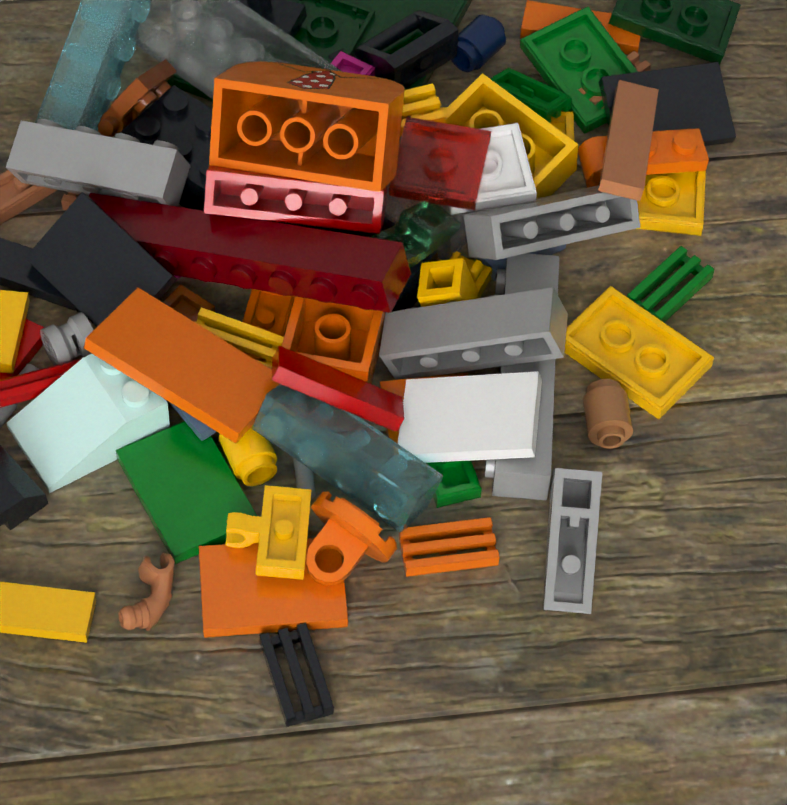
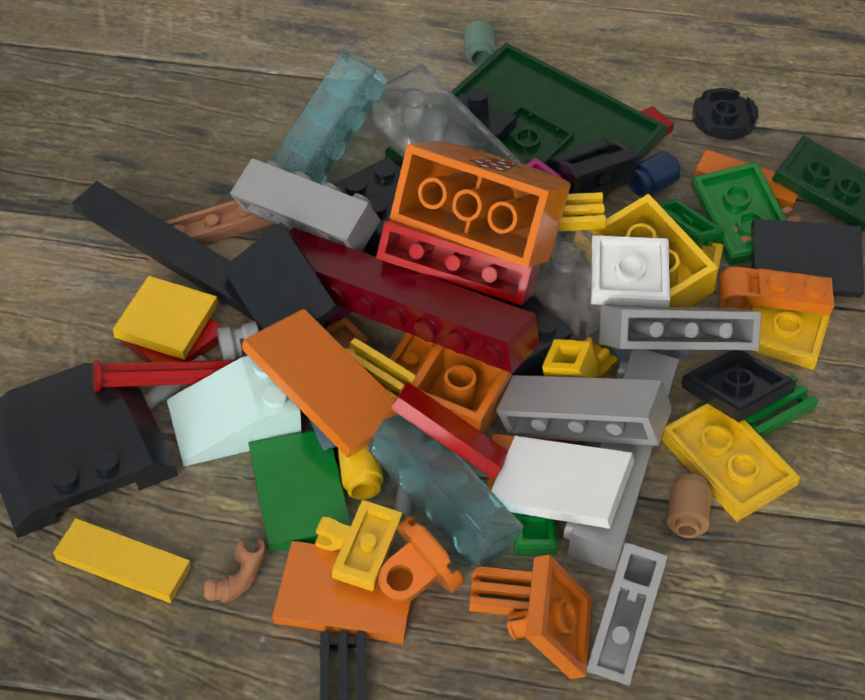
camera: 15 degrees right, 5 degrees down
(136, 98) = (354, 158): dark orange plate -> none
(421, 230) = (560, 311): clear green slope -> none
(440, 163) = (591, 258): clear red tile -> none
(502, 562) = (556, 618): none -> orange tile
(626, 270) = (738, 384): none -> black tile
(628, 140) = (764, 274): nougat tile -> none

